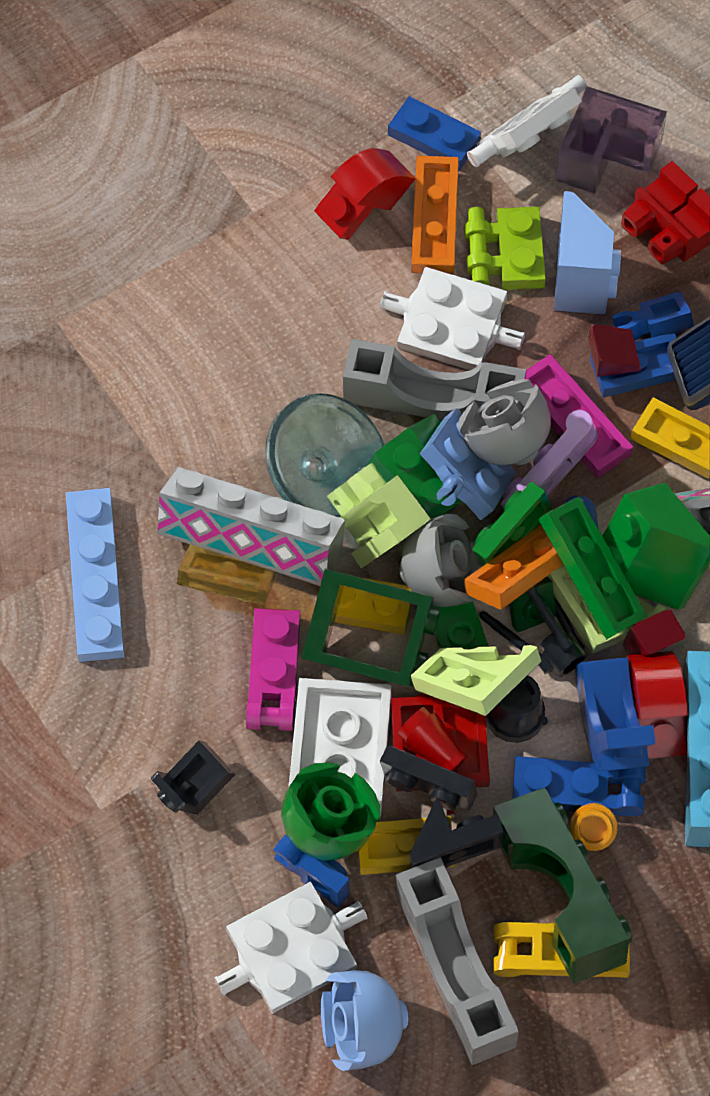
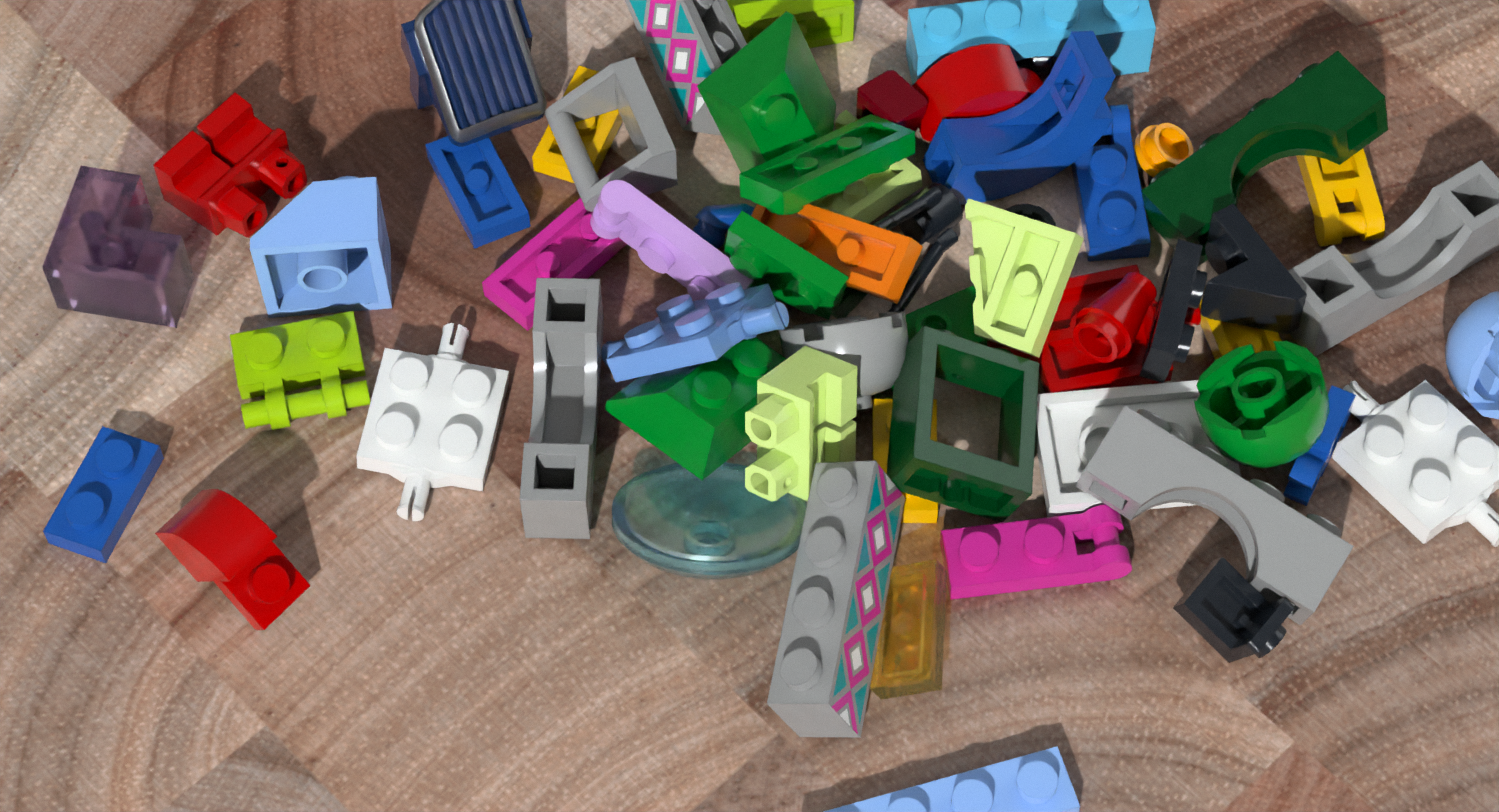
camera: 100 degrees left, 5 degrees down
(227, 817) = (1283, 550): none -> light grey arch
(434, 214) = (258, 462): orange plate -> none
(509, 425) = (637, 271): light grey cylinder -> none
(523, 129) = (98, 347): white plate -> none
(613, 350) = (474, 203): dark red slope -> none
(652, 459) = (614, 88): none -> light grey tile
(657, 317) = (401, 166): blue plate -> none

